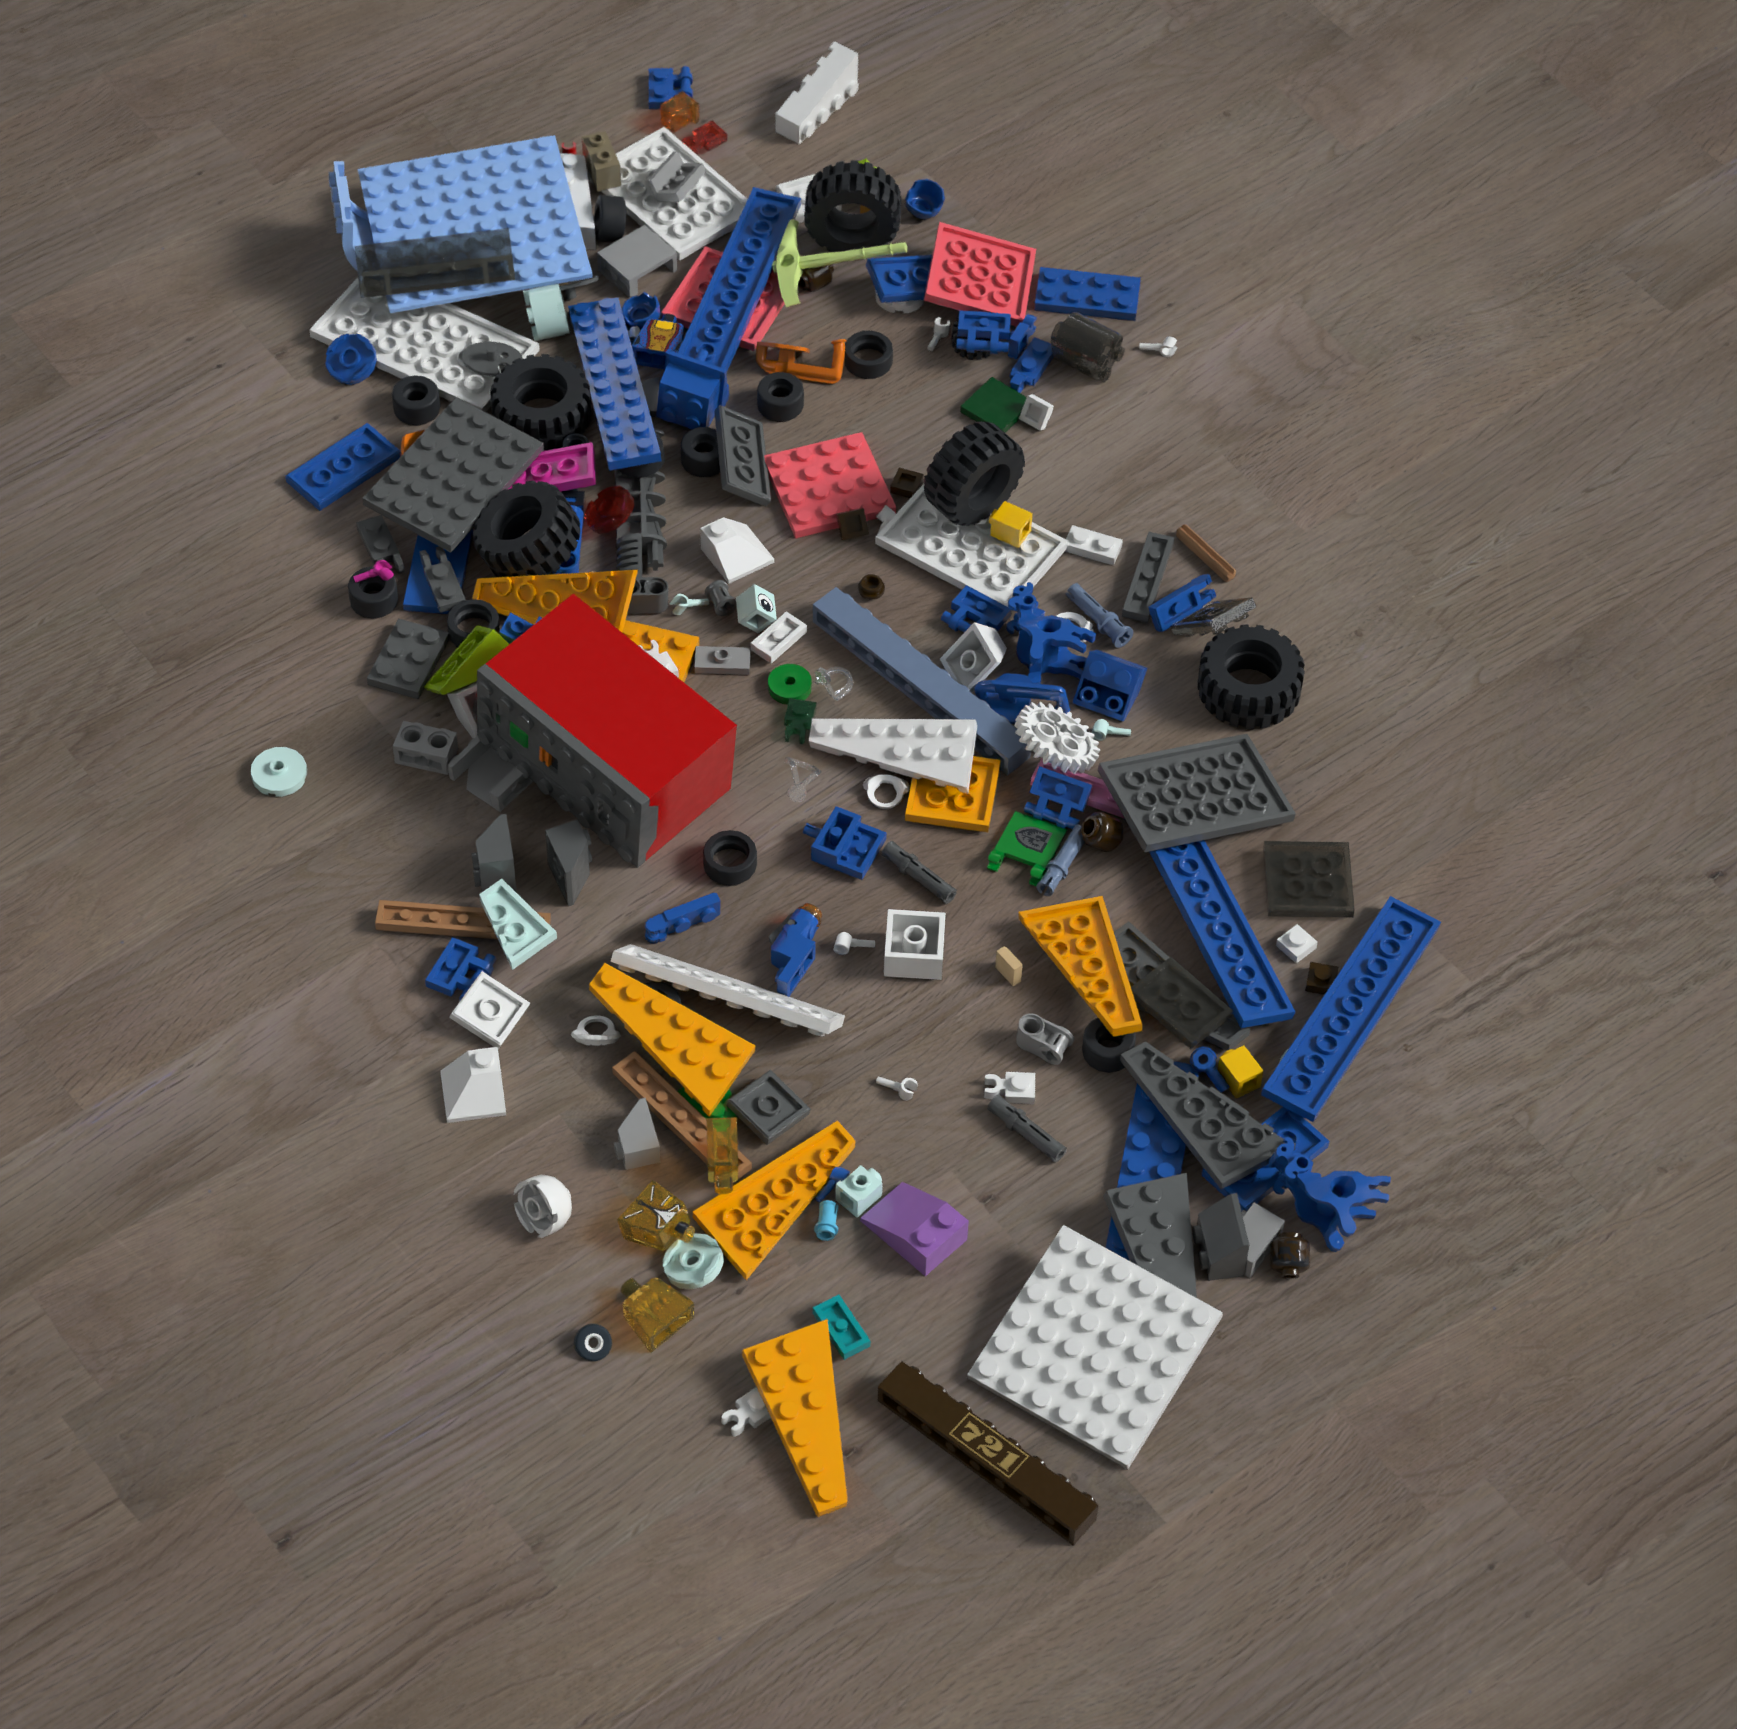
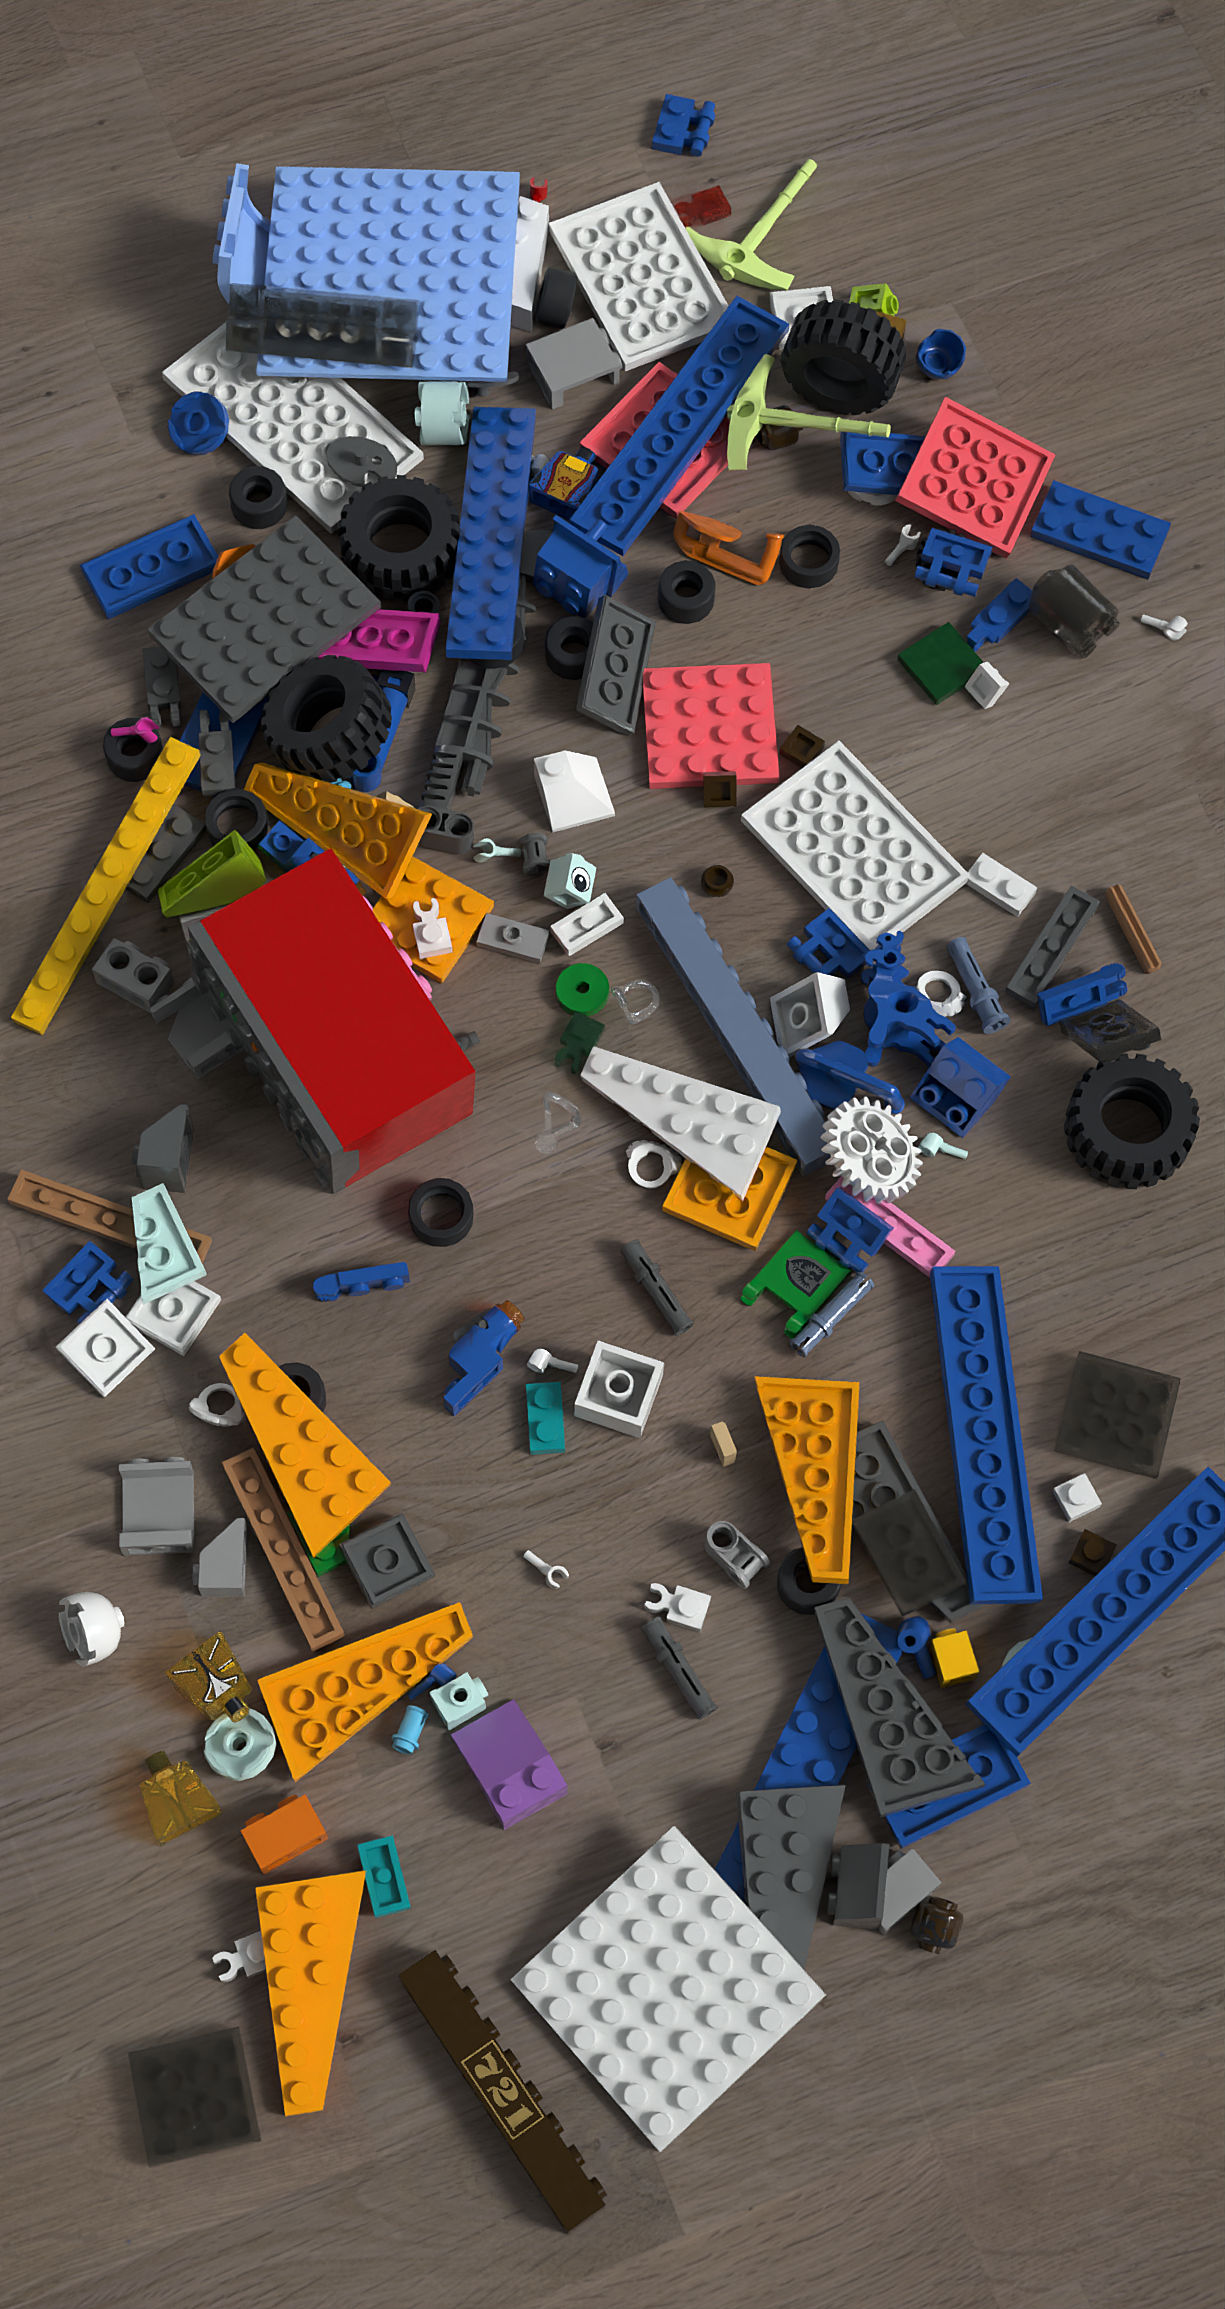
camera: 15 degrees right, 15 degrees up
(383, 690) = (105, 886): none -> yellow plate
(473, 1086) = (58, 1445): white slope -> none
(539, 976) = (176, 1316): none -> white tile
(569, 858) = (252, 1173): dark grey slope -> none
(569, 1112) = (157, 1507): none -> light grey panel
(601, 161) = (566, 218): dark tan brick -> none
(604, 1342) = (96, 1805): black wheel -> none
(609, 509) = (438, 703): clear red tile -> none
(640, 309) = (555, 434): blue hair -> none
(675, 178) = (647, 262): light grey bracket -> none
(679, 112) = (683, 164): clear orange brick -> none
(722, 1153) = (305, 1608): clear yellow torso -> none
(736, 992) = (383, 1395): white plate -> none
(740, 1517) = (194, 2097): none -> clear smoke plate
(746, 169) = (738, 259): none -> yellowish green piece
(750, 1314) = (283, 1833): none -> orange brick
(819, 94) = (856, 179): white wedge -> none
(845, 843) = (581, 1228): blue plate -> none
(861, 982) = (545, 1418): none -> teal plate
(885, 516) = (763, 788): white hand -> none
(974, 473) = (873, 771): black tyre -> none
(1010, 524) = (904, 840): yellow brick -> none
(1019, 338) = (997, 576): blue plate -> none
(1102, 831) = (888, 1290): dark brown head -> none
(1196, 792) = (1016, 1266): dark grey plate -> none
(1329, 1200) = (1001, 1869): blue animal -> none

